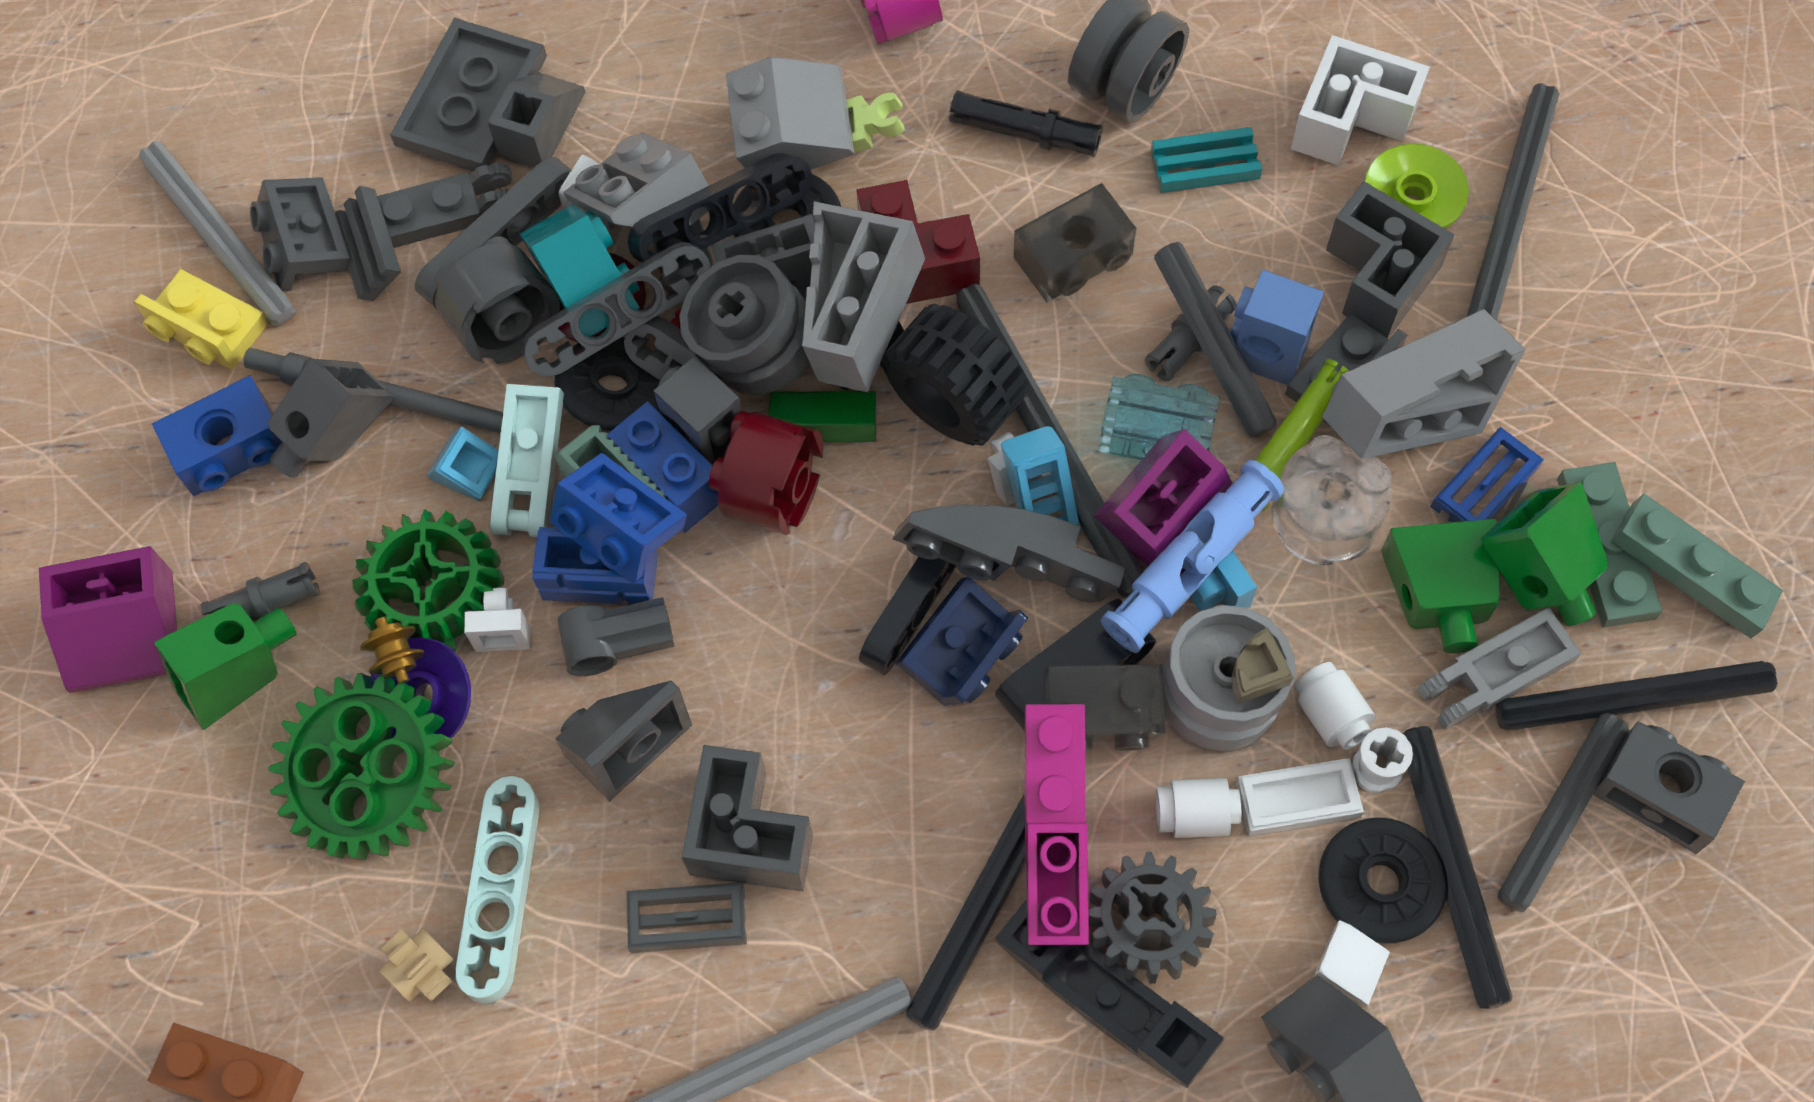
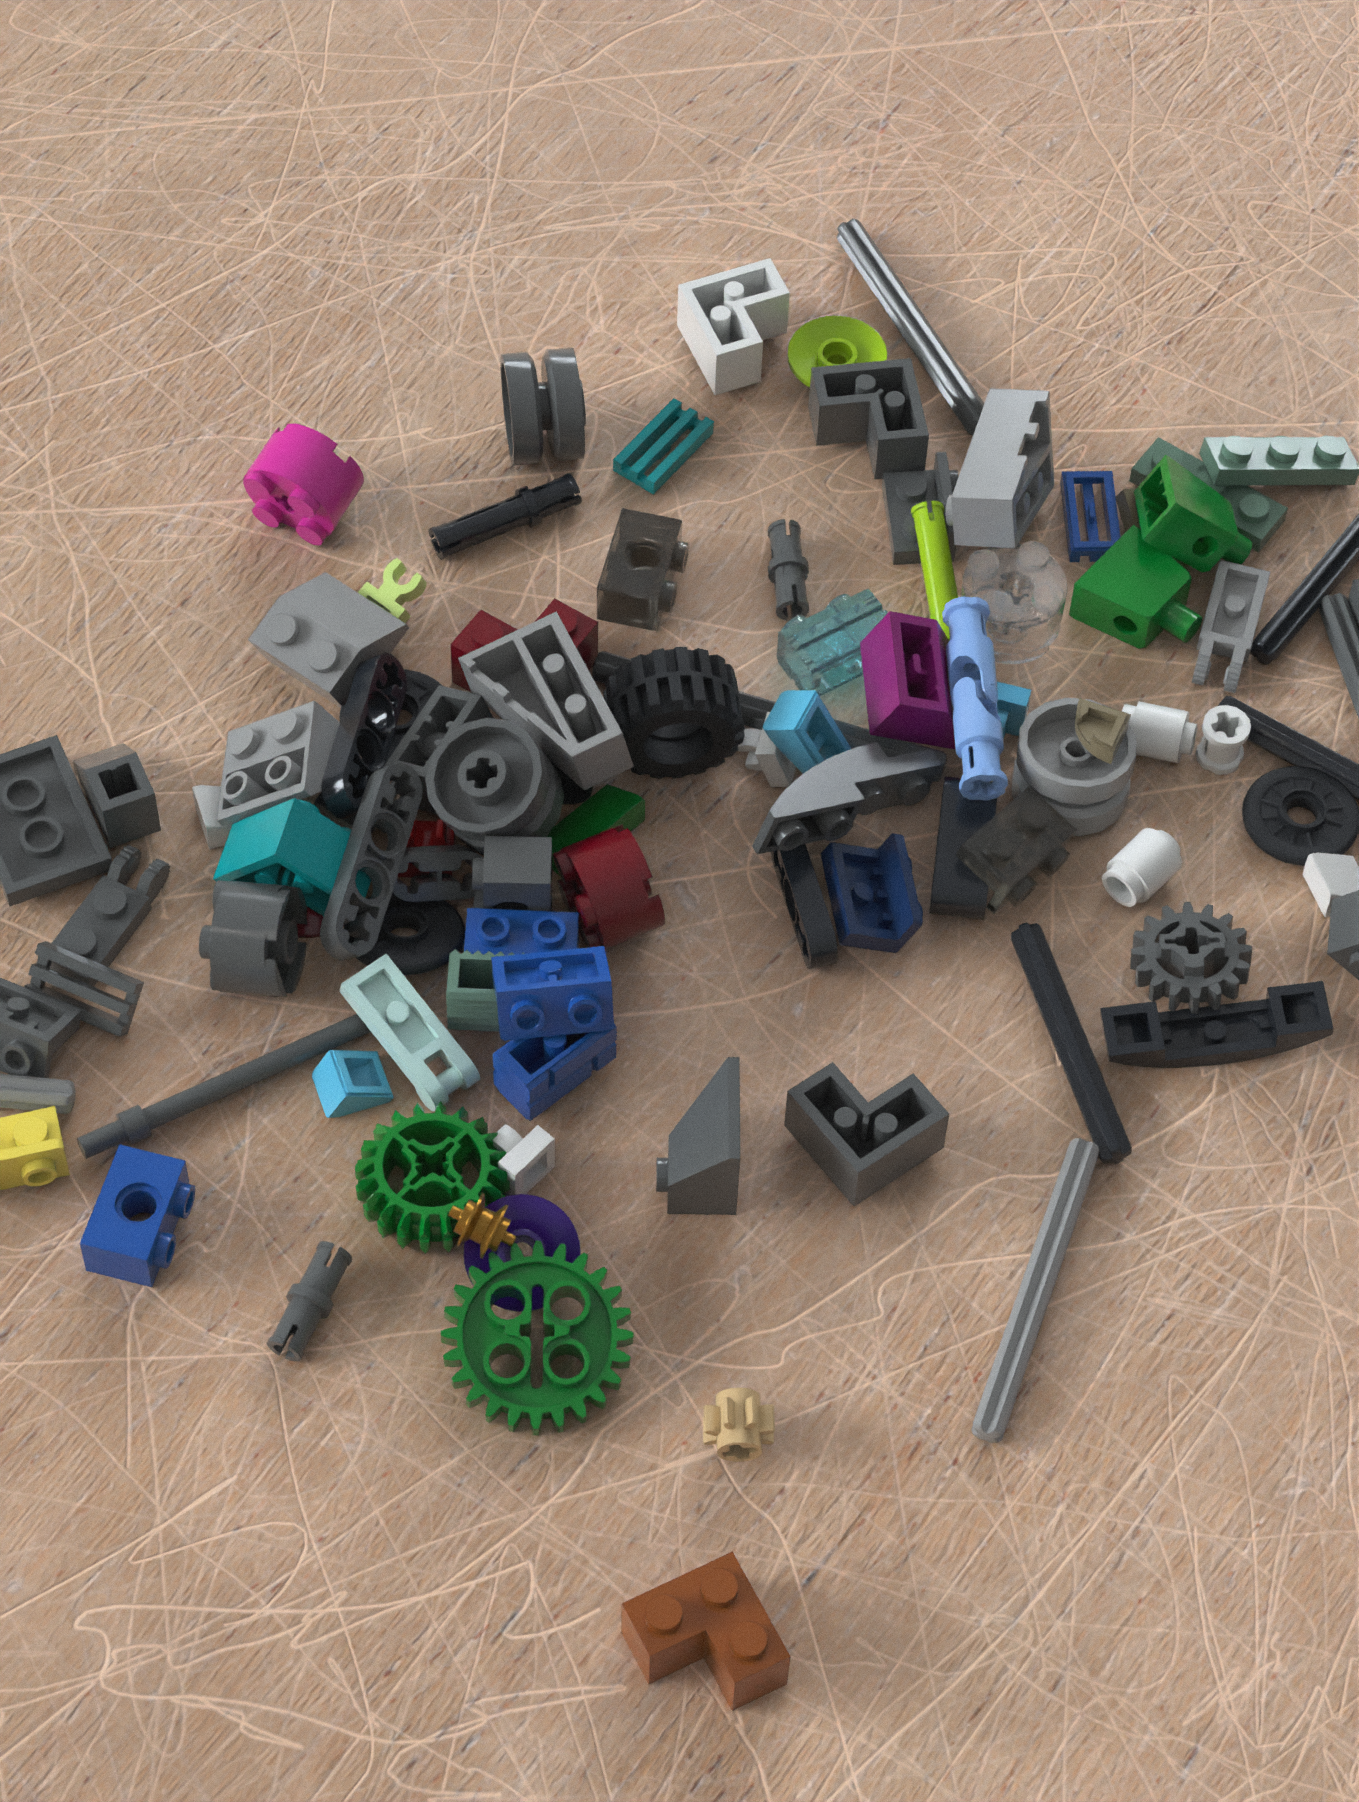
camera: 50 degrees left, 10 degrees down
(107, 616) = (214, 1407): magenta slope -> none
(222, 659) = (346, 1340): green torso -> none
(325, 413) = (221, 1099): dark grey torso -> none
(505, 888) = (738, 1327): light aqua beam -> none
(517, 210) = (182, 900): dark grey beam -> none
(599, 637) = (610, 1104): dark grey piece -> none
(692, 939) = (855, 1267): dark grey tile -> none
(1056, 825) = (1071, 947): dark pink slope -> none
(1215, 339) = (818, 554): dark grey axle -> none
(1275, 325) = (855, 513): medium blue brick -> none
(1299, 797) = (1197, 806): white tile -> none

